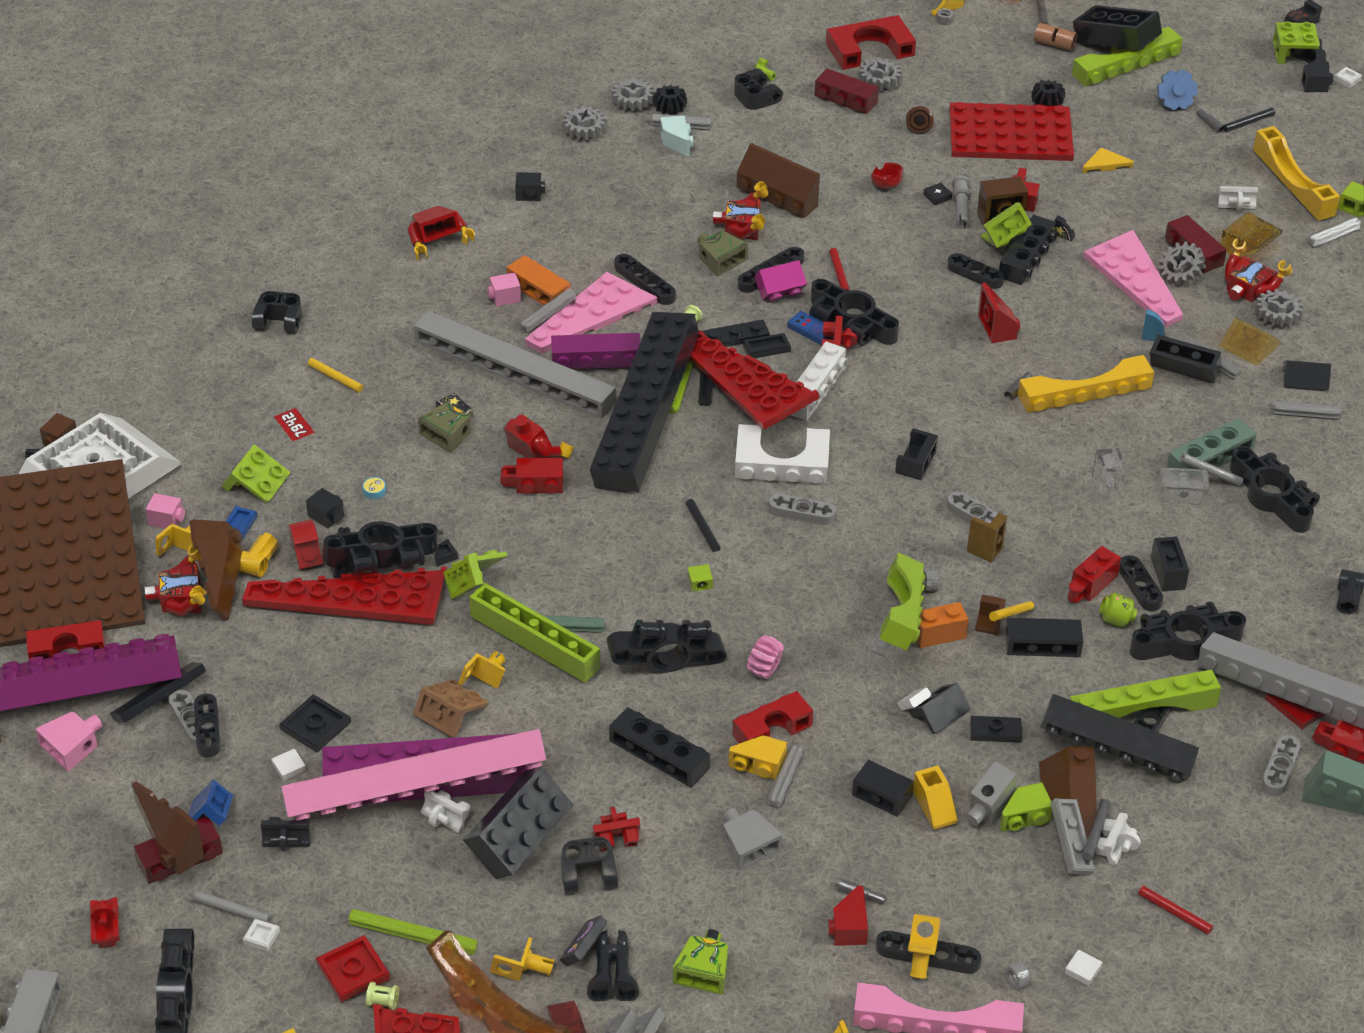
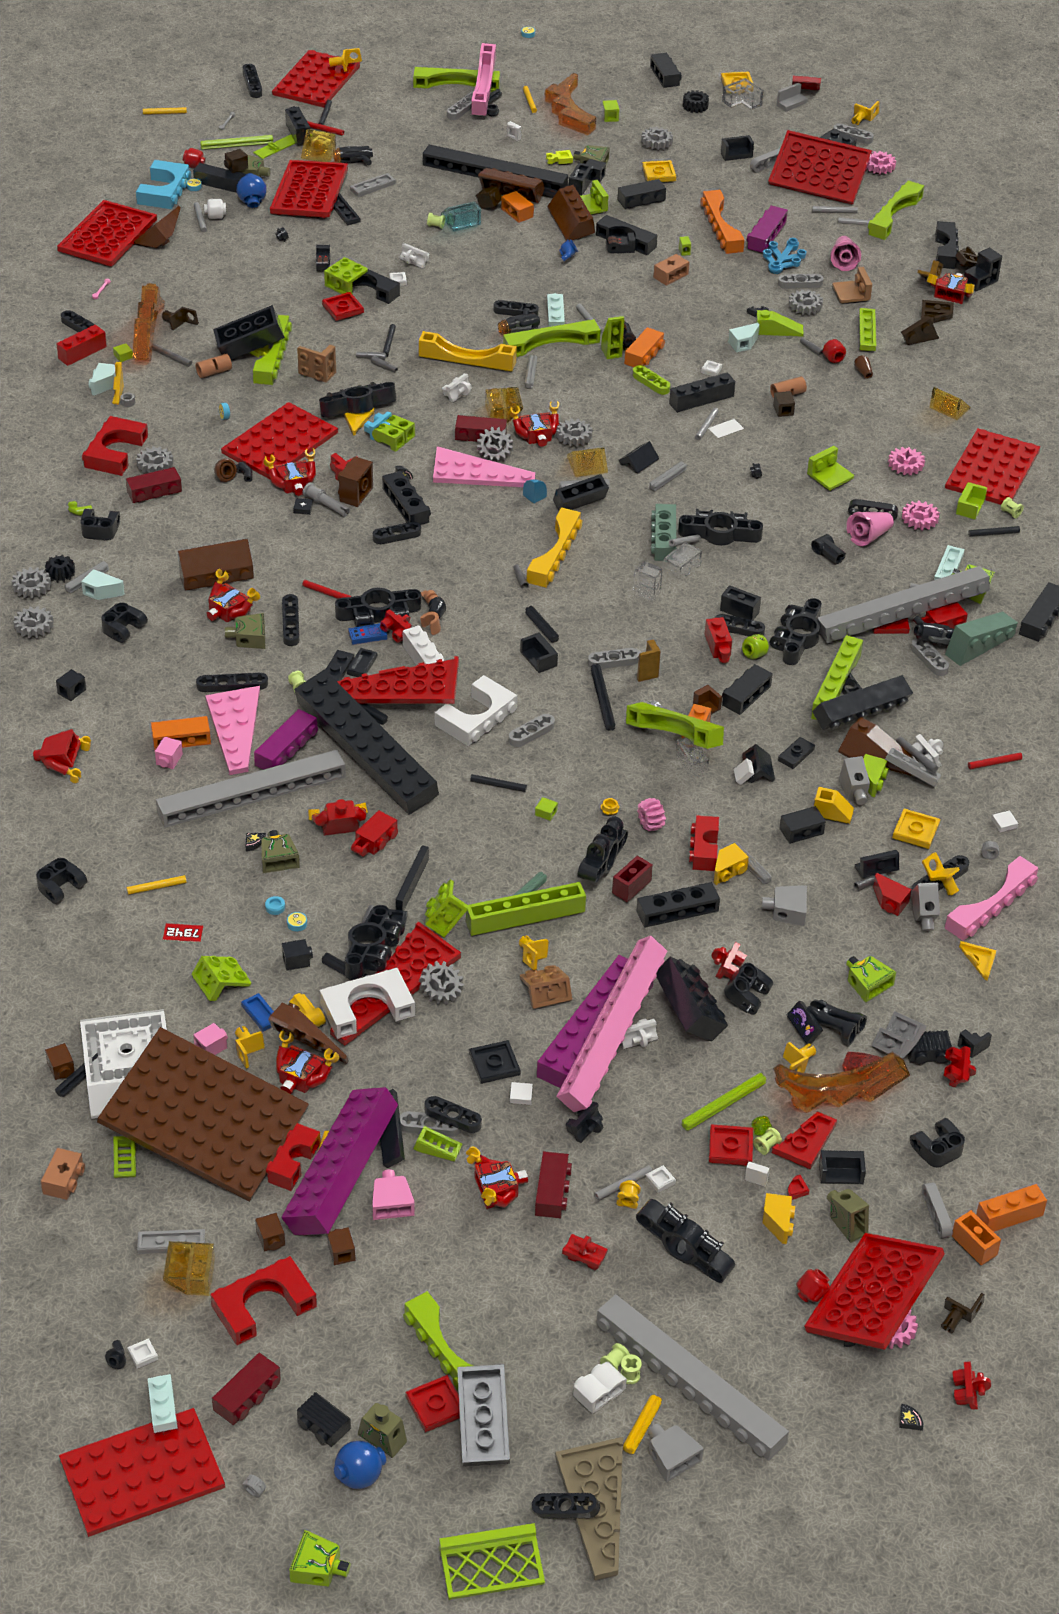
camera: 55 degrees left, 0 degrees up
(126, 812) = (495, 1179): none -> torso
(166, 721) = (435, 1150): none -> lime slope
(171, 829) = (552, 1172): reddish brown wedge -> none
(213, 802) = (527, 1149): blue panel -> none
(214, 917) = (628, 1194): none -> yellow brick
(281, 563) = (384, 985): none -> white arch
(305, 543) = (318, 976): red brick -> none
(326, 1010) = (757, 1174): none -> white tile
(381, 615) = (450, 980): none -> light grey gear
(382, 463) = (275, 905): none -> medium azure tile
(400, 978) = (760, 1125): none -> clear neon green bush
(501, 533) = (412, 878): none -> black tile
(548, 310) = (215, 743): light grey axle -> none
(643, 166) = (118, 617): none -> black piece
(656, 690) = (632, 878): none -> dark red brick
(752, 622) = (610, 806): none -> yellow plate
(781, 280) = (314, 619): dark pink brick -> none
(856, 955) = (926, 904): none -> light grey torso
(886, 883) = (878, 863): none -> black panel
(887, 177) = (264, 515): red hair -> none
(893, 353) = (436, 610): none -> nougat piece
(909, 535) = (603, 698): none -> black axle
(941, 134) = (248, 472): none -> black arm
(965, 436) = (542, 624): none -> black axle
(967, 161) = (292, 476): none -> red torso
(983, 891) = (916, 828): none -> yellow plate
(996, 316) = (455, 547): red slope -> none
(1002, 76) = (224, 411): none -> medium azure tile
(1006, 226) = (382, 493): lime bracket -> none
(1011, 611) = (718, 688): yellow bar -> none
(1048, 93) = (267, 402): black gear -> none
(1112, 185) = (390, 430): none -> lime hips
(1126, 143) = (357, 399): none -> black piece
(1142, 94) = (316, 364): none -> medium nougat bracket
(1177, 89) = (340, 344): medium blue plant -> none
(1208, 134) = (381, 363): none -> flat silver pin
(1254, 65) = (343, 306): none -> red plate
(1307, 740) = (932, 632): none -> black piece

